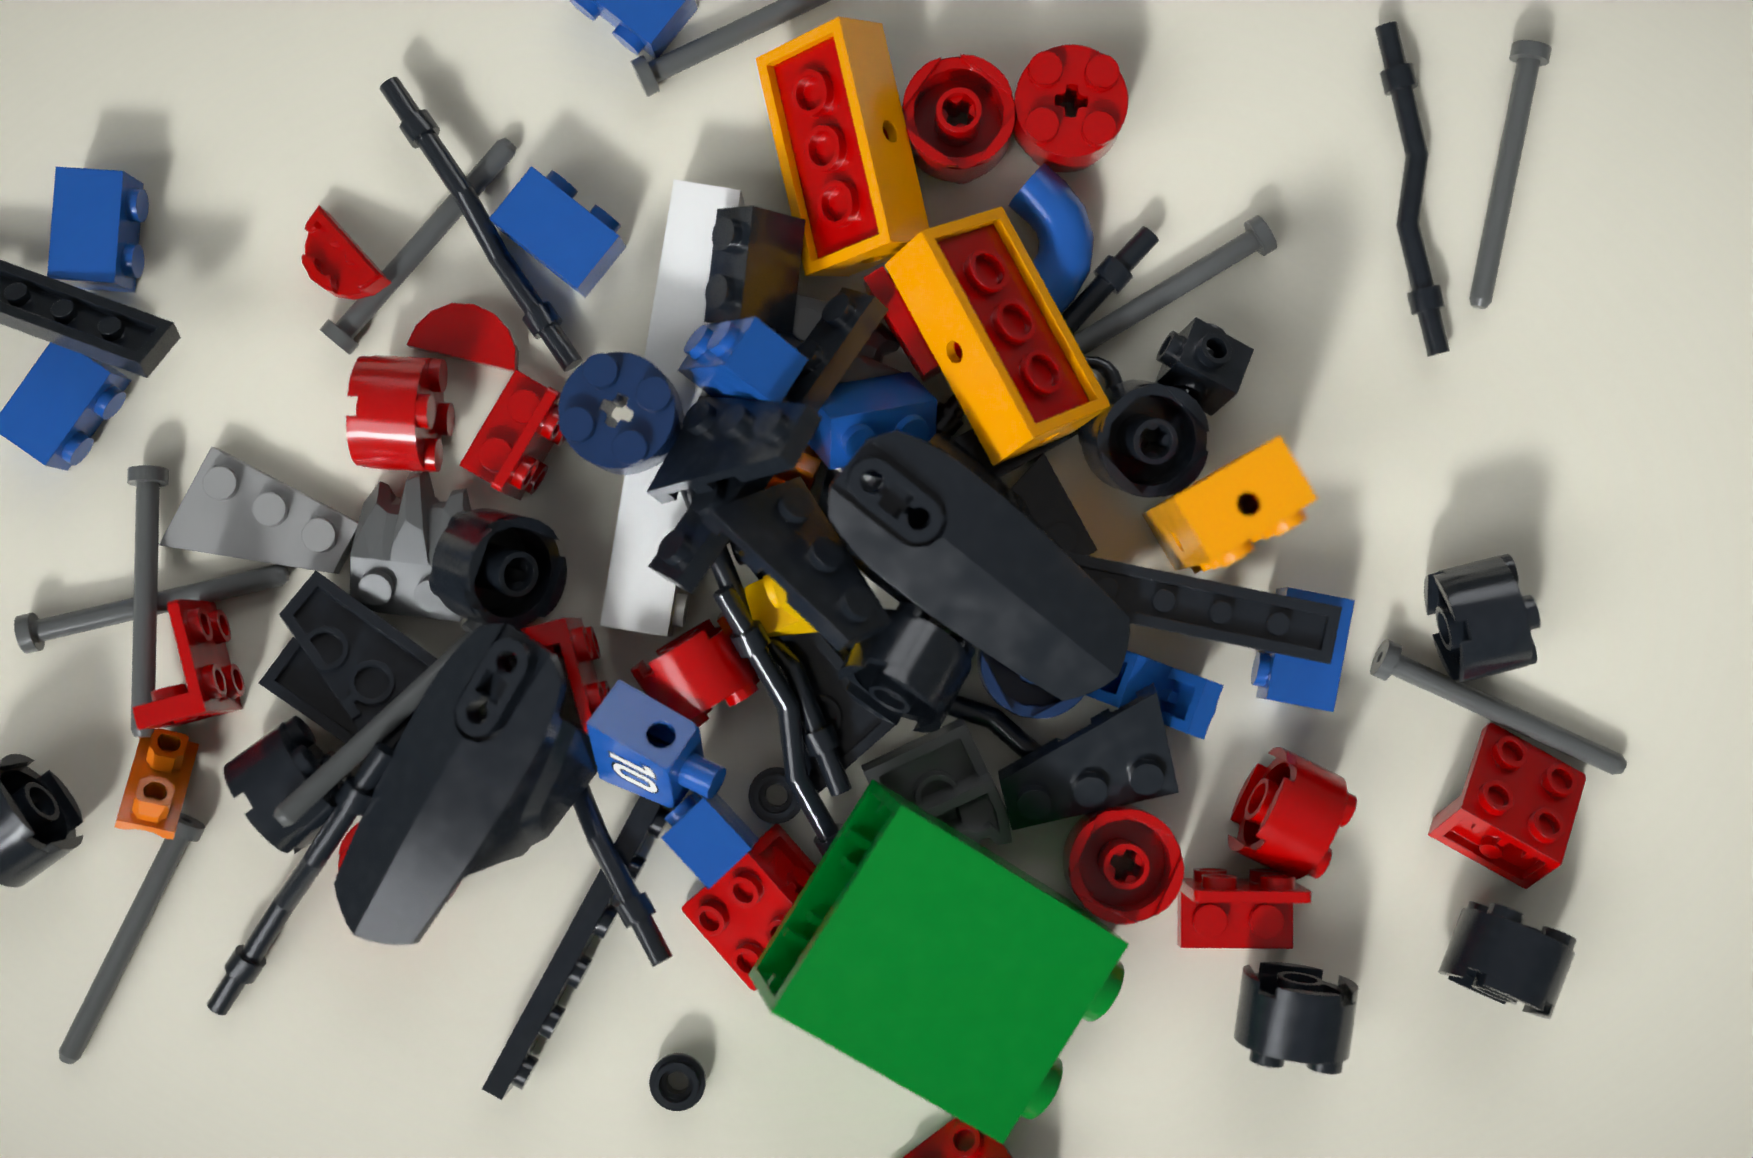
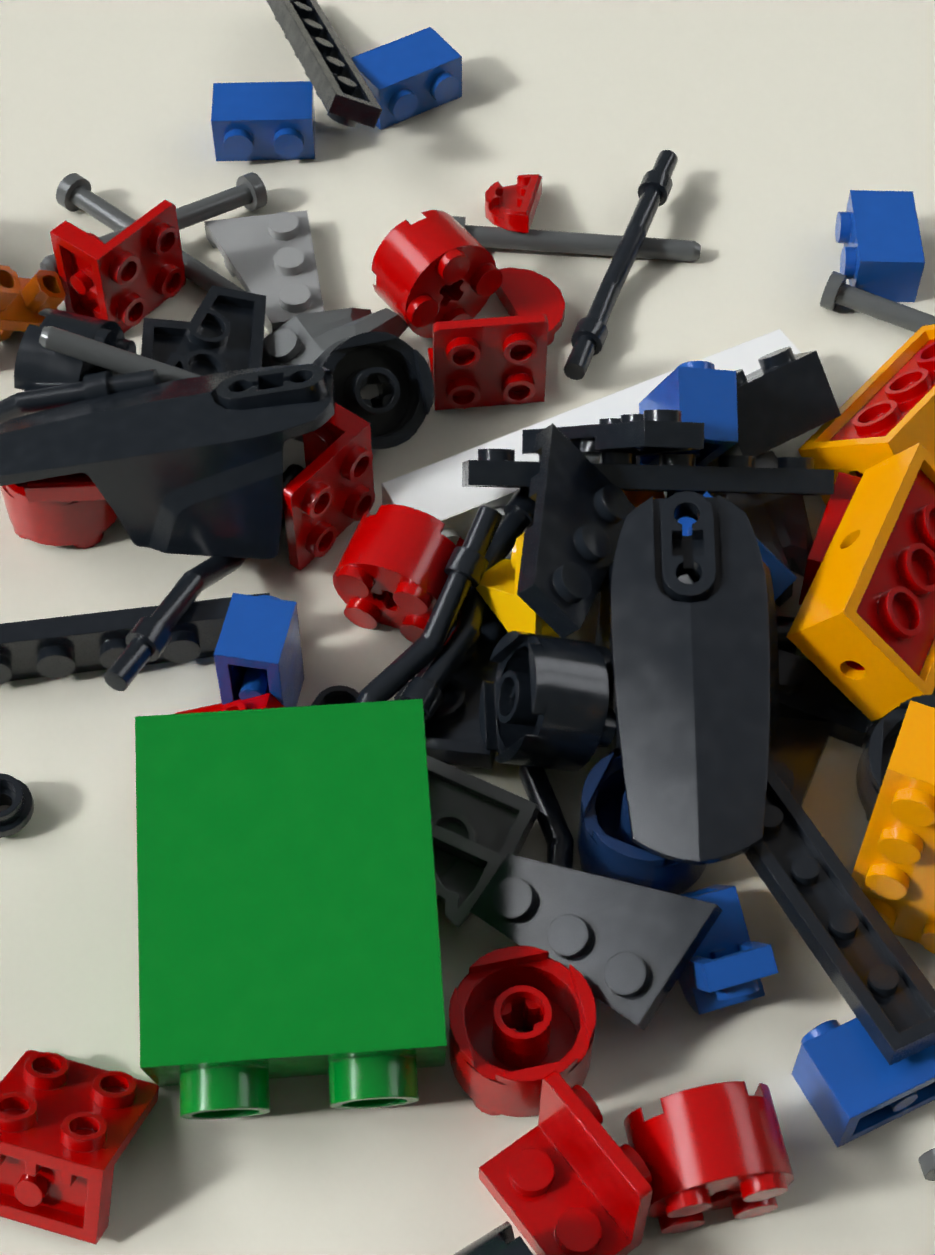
camera: 50 degrees right, 35 degrees down
(558, 230) = (667, 303): blue brick -> none
(609, 383) = (568, 371): dark blue brick -> none
(650, 748) = (303, 561): blue torso -> none

